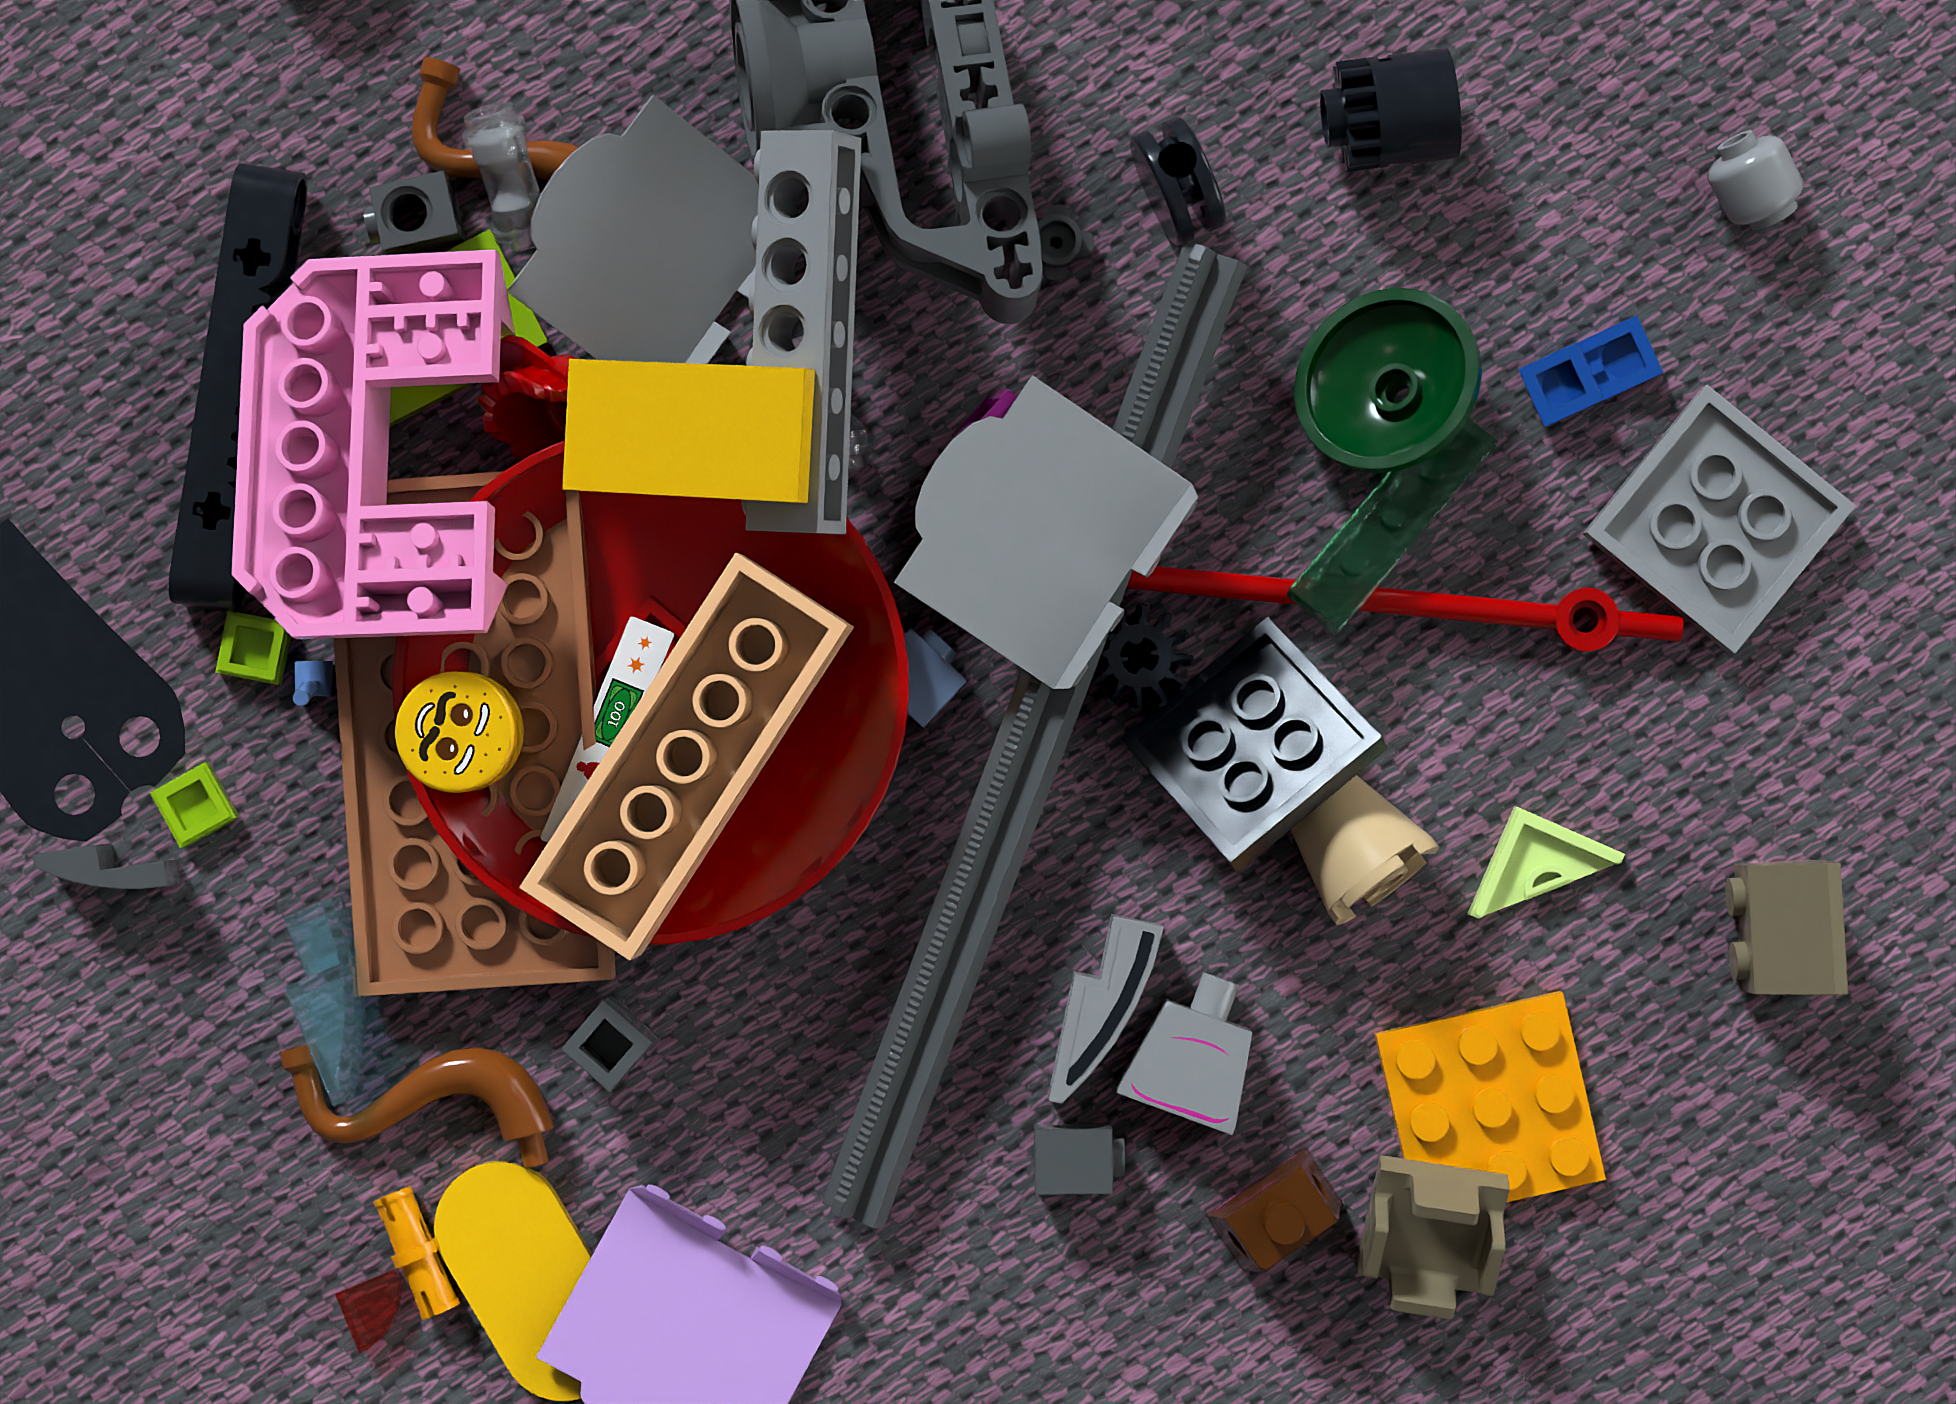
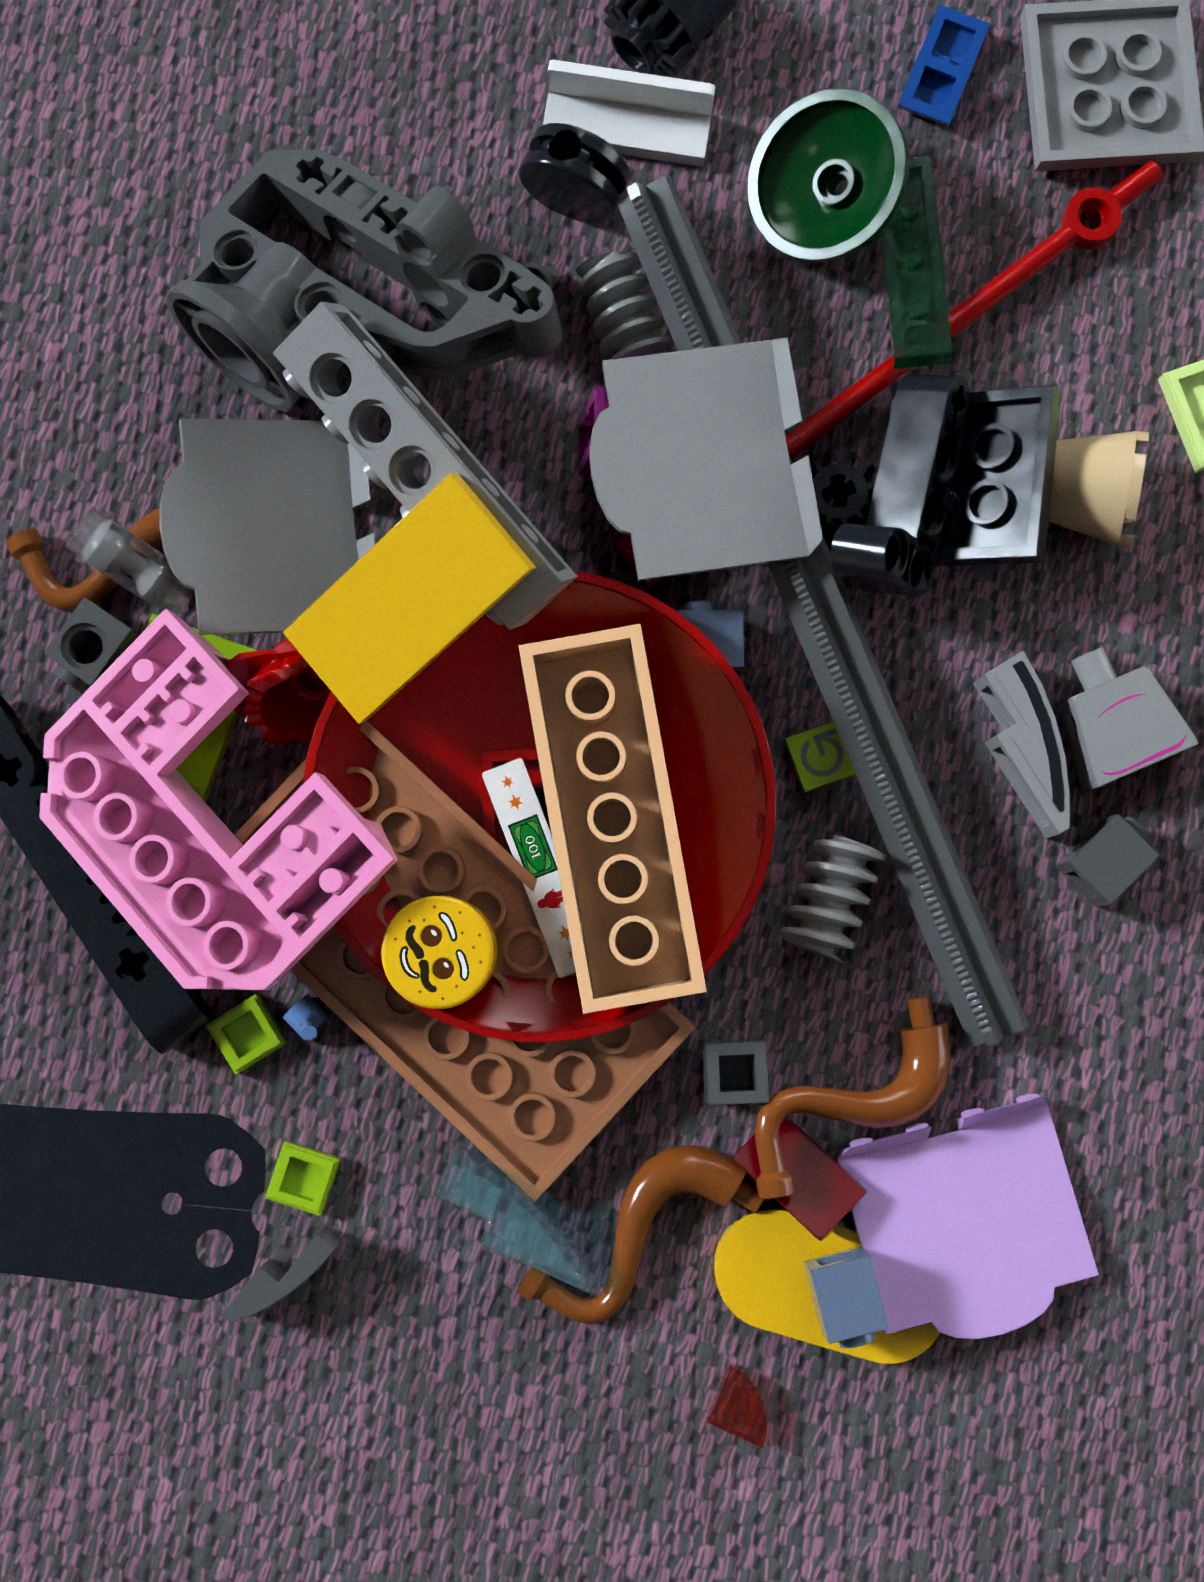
camera: 50 degrees left, 5 degrees down
(416, 1252) = (735, 1341): light orange pin -> none
(529, 1297) = (846, 1297): none -> sand blue brick
(586, 1172) = (821, 1186): none -> dark red slope
(724, 1192) = (906, 1099): none -> dark orange animal
(822, 979) = (831, 896): none -> light grey piece
(921, 855) = (818, 757): none -> lime tile
(1109, 338) = (619, 307): none -> light grey piece
(1192, 711) = (910, 491): none -> black beam
(1277, 167) = (633, 110): none -> white panel

